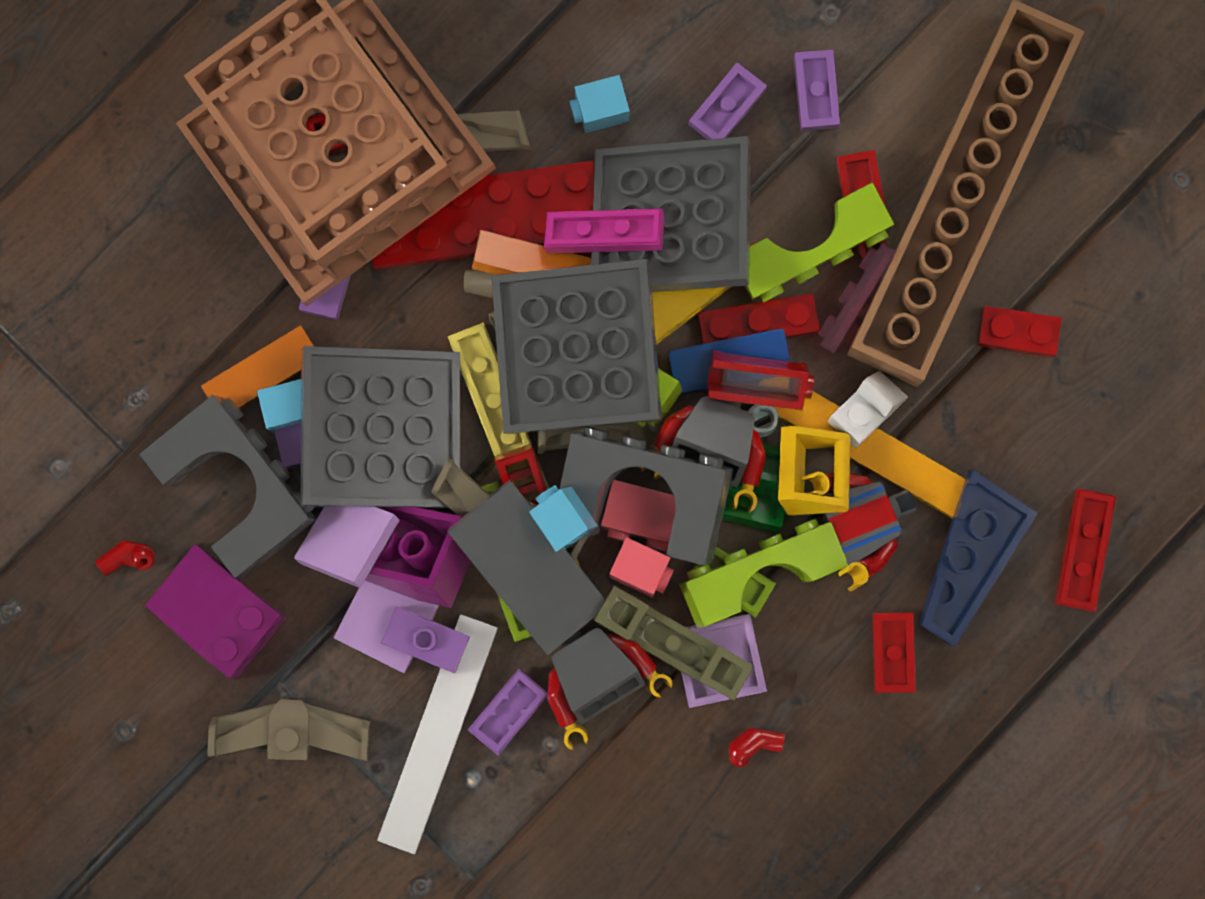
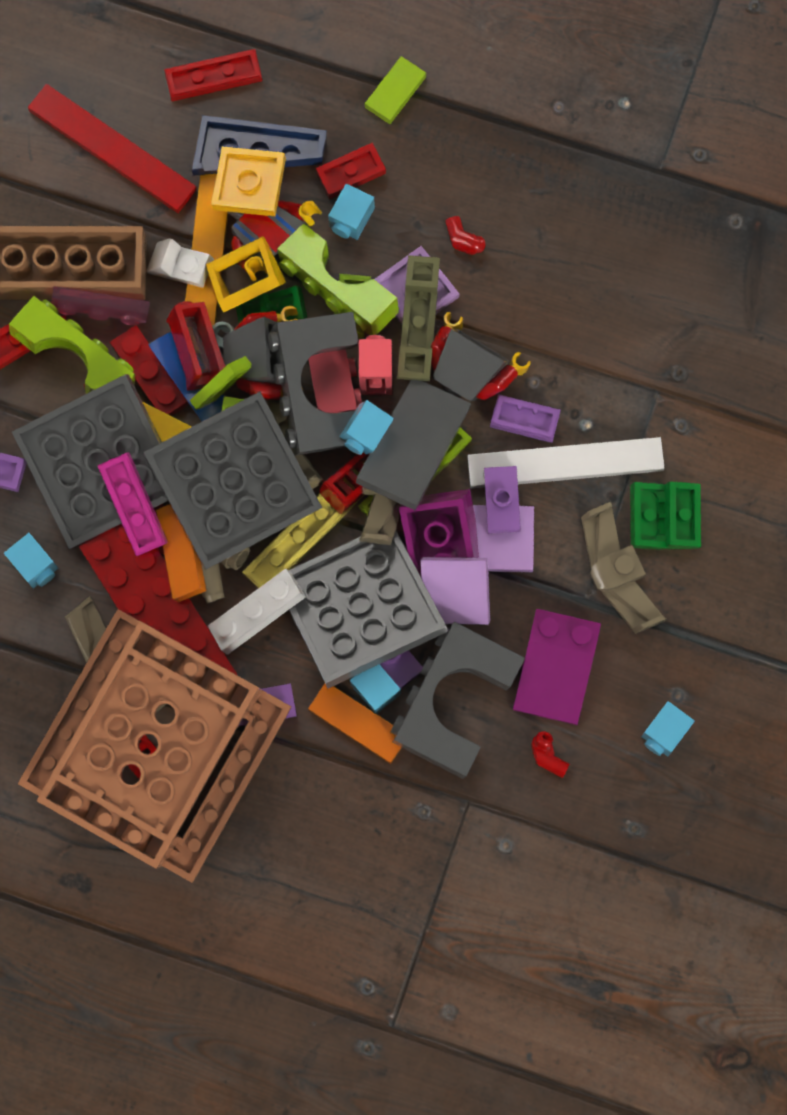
camera: 115 degrees left, 5 degrees down
(87, 697) = (667, 730): none -> medium azure brick
(324, 815) = (665, 515): none -> green slope
(429, 316) = (256, 611): none -> white plate
(695, 385) = (221, 382): none -> lime tile
(841, 628) = (351, 212): none -> medium azure brick
(924, 524) = (248, 181): none -> yellow plate
(971, 752) = (395, 90): none -> lime tile
(1019, 331) = (71, 186): red plate -> none
(1045, 396) = (112, 148): none -> red tile

